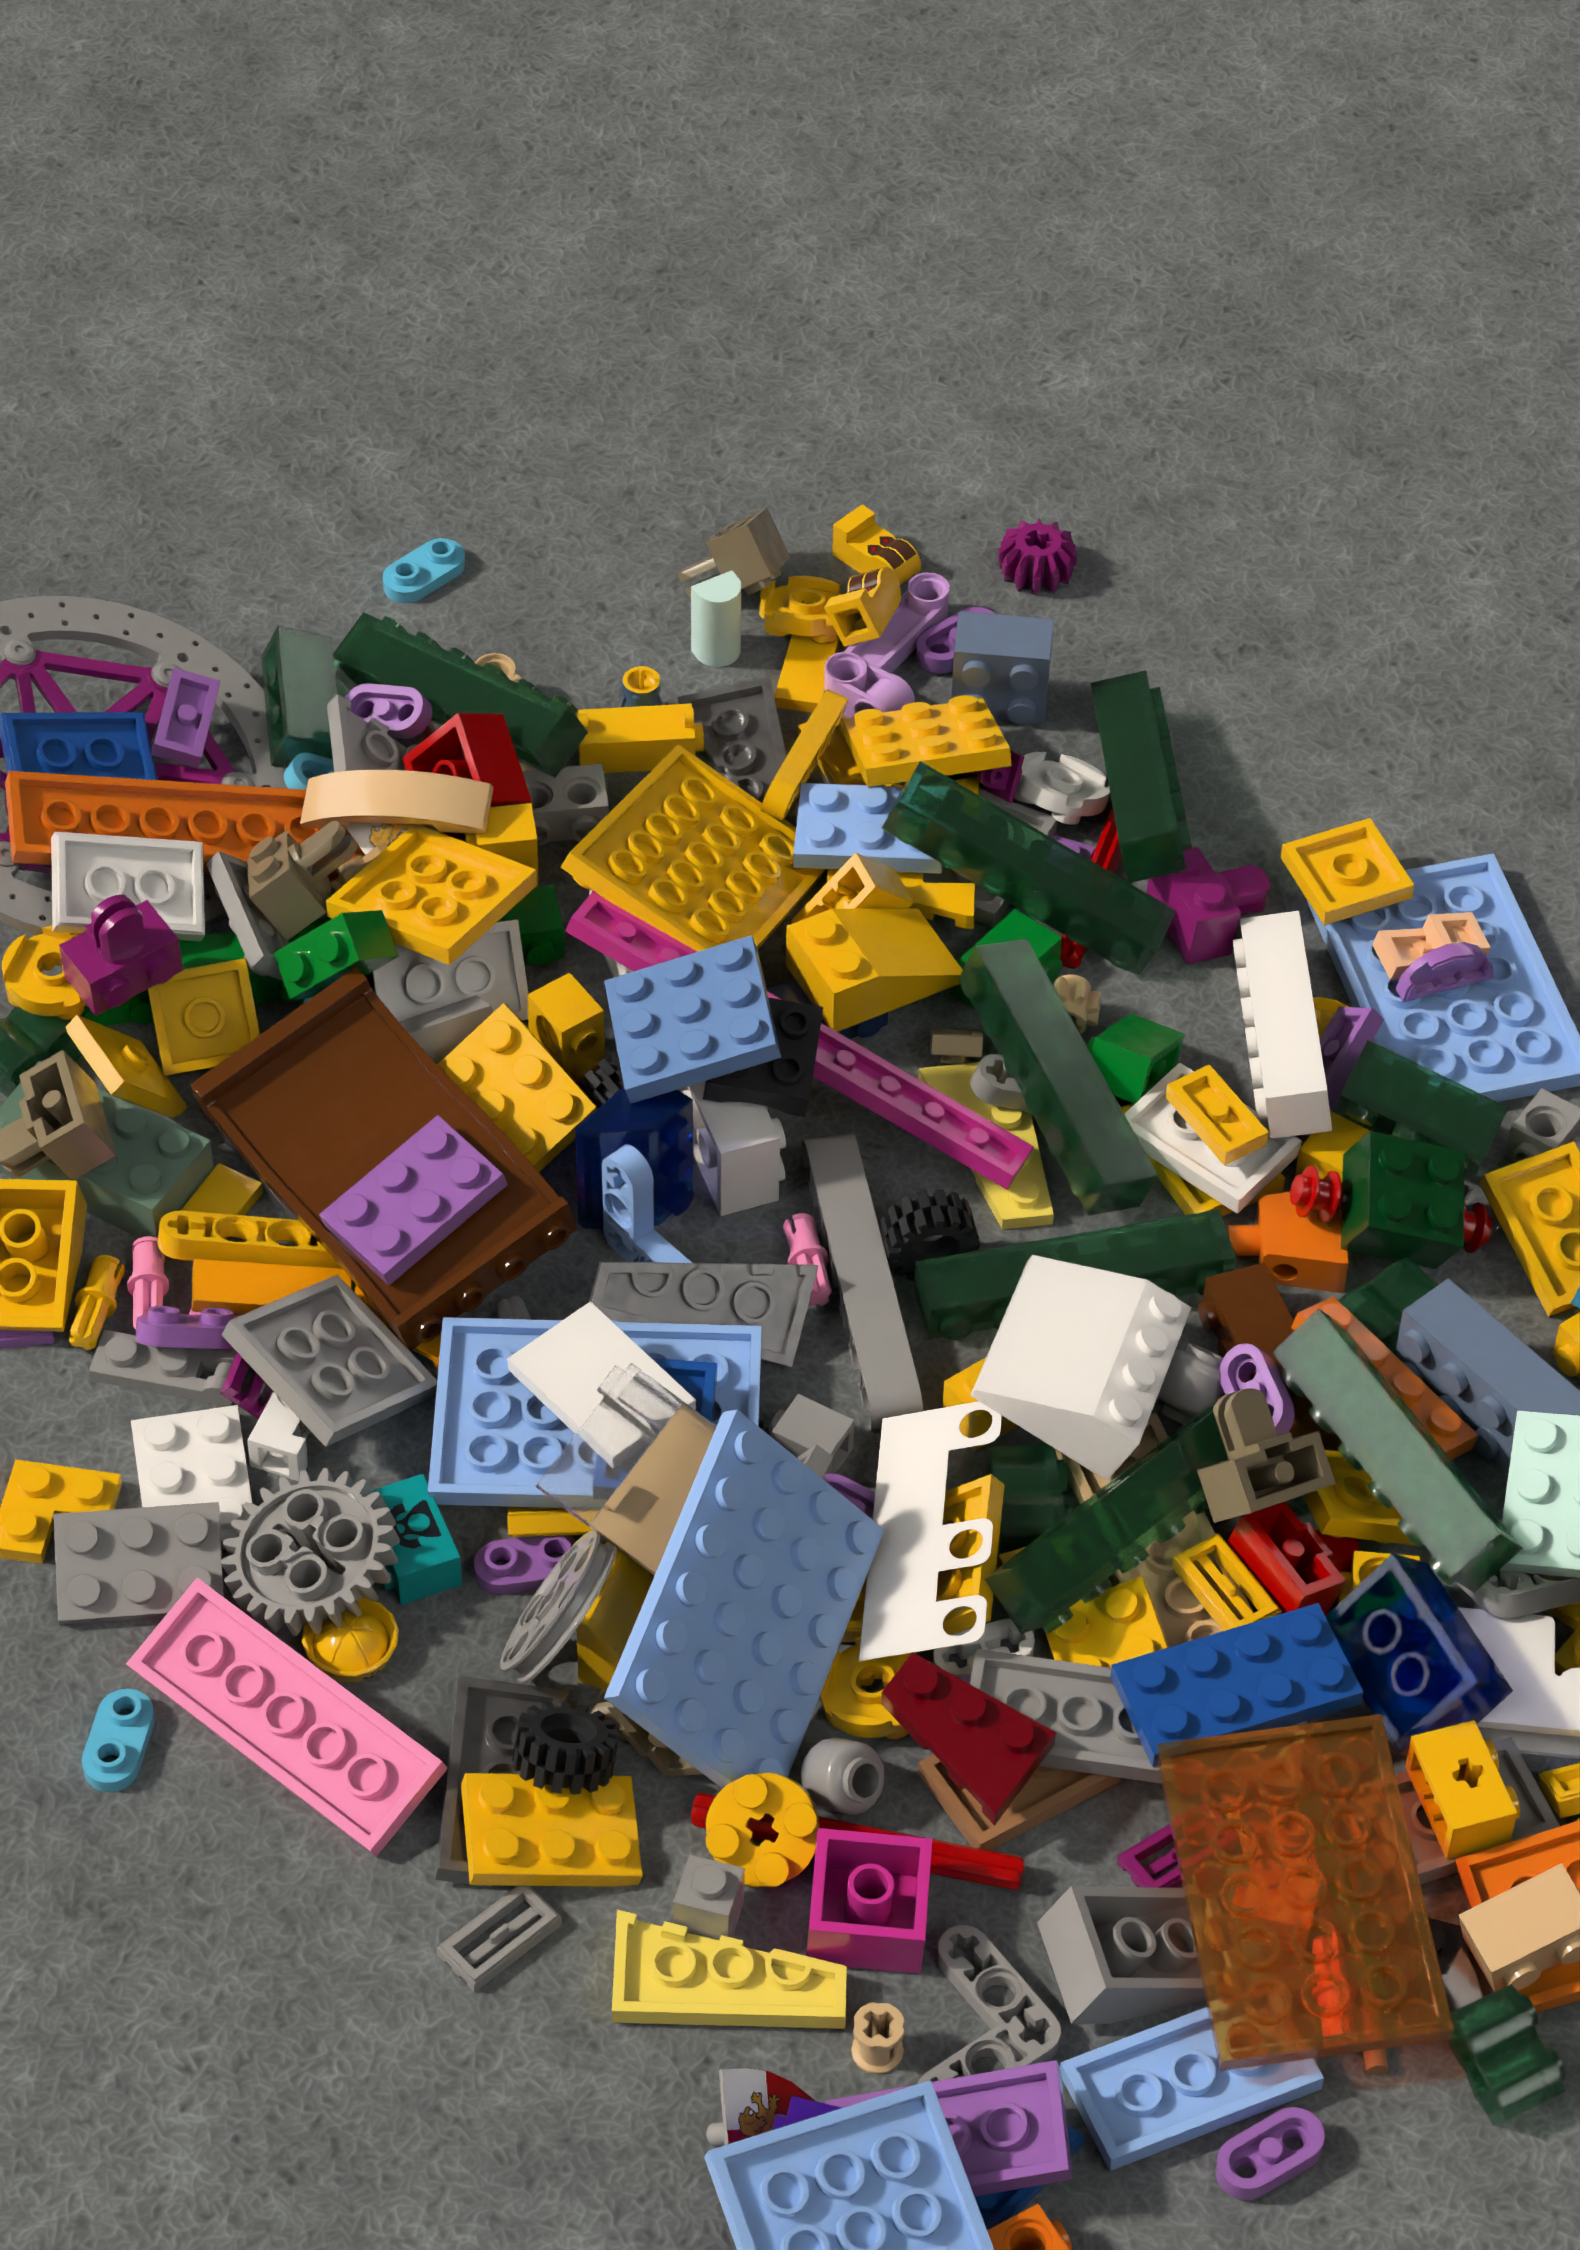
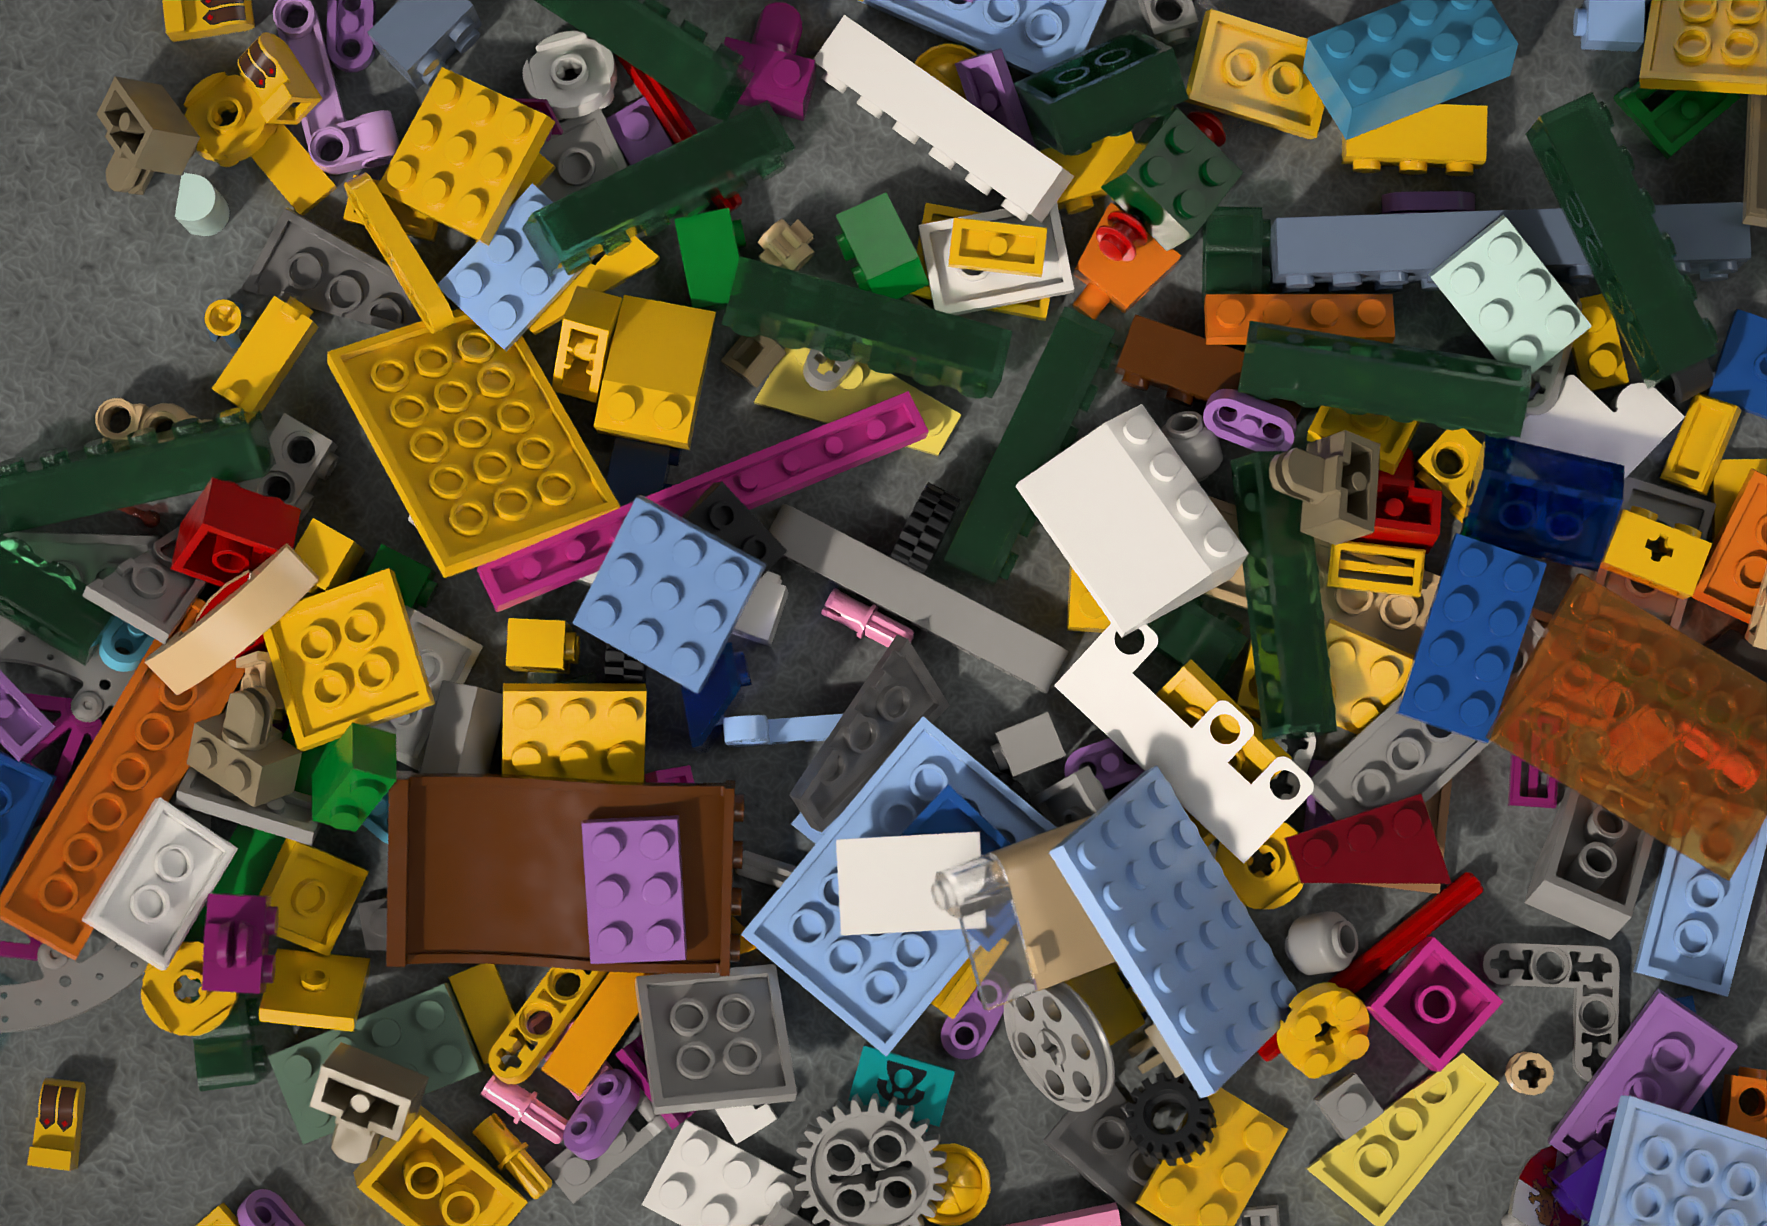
camera: 50 degrees left, 35 degrees up
(398, 707) = (108, 539): medium lavender plate -> none

